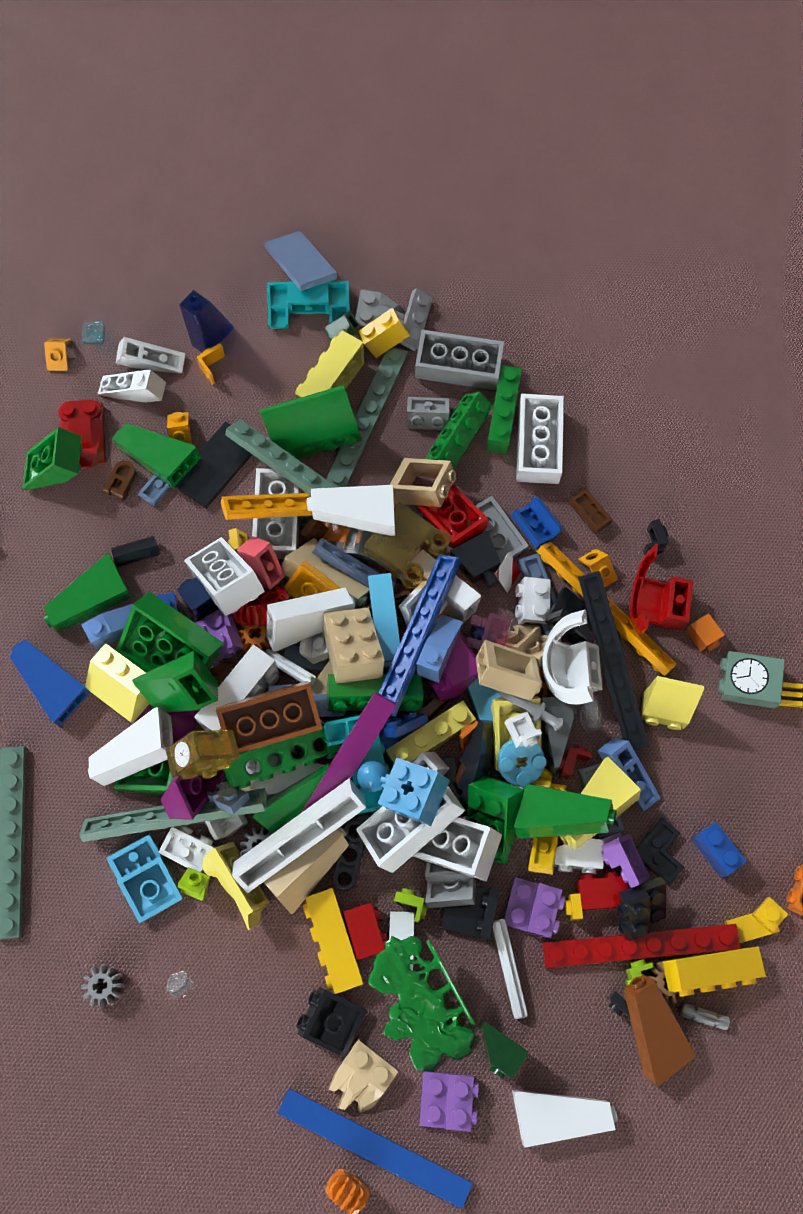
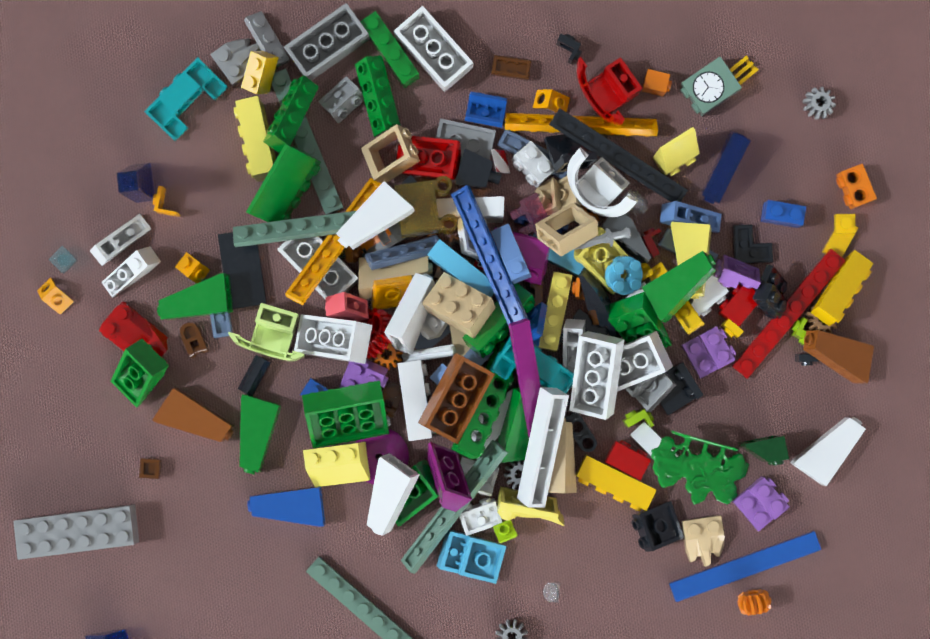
camera: 40 degrees left, 15 degrees up
(53, 533) = (189, 415): none -> dark orange slope
(106, 626) = (292, 431): medium blue slope -> none
(179, 685) = (382, 432): green slope -> none
(183, 532) = (272, 334): none -> yellowish green piece
(196, 598) = (328, 368): dark blue brick -> none
(202, 753) = (445, 459): clear yellow brick -> none
(228, 799) = (479, 467): sand blue plate -> none
(237, 539) = (313, 306): yellow plate -> none
(300, 260) = (147, 72): sand blue tile -> none
(345, 322) = (227, 94): brick -> none
(377, 379) = (291, 113): none -> green brick
(407, 790) = (575, 362): dark azure brick -> none
(509, 969) = (728, 399): white axle -> none
(523, 730) = (610, 257): white bracket -> none
(702, 758) = (725, 167): none -> clear blue slope
(705, 1016) = (858, 318): light grey axle -> none

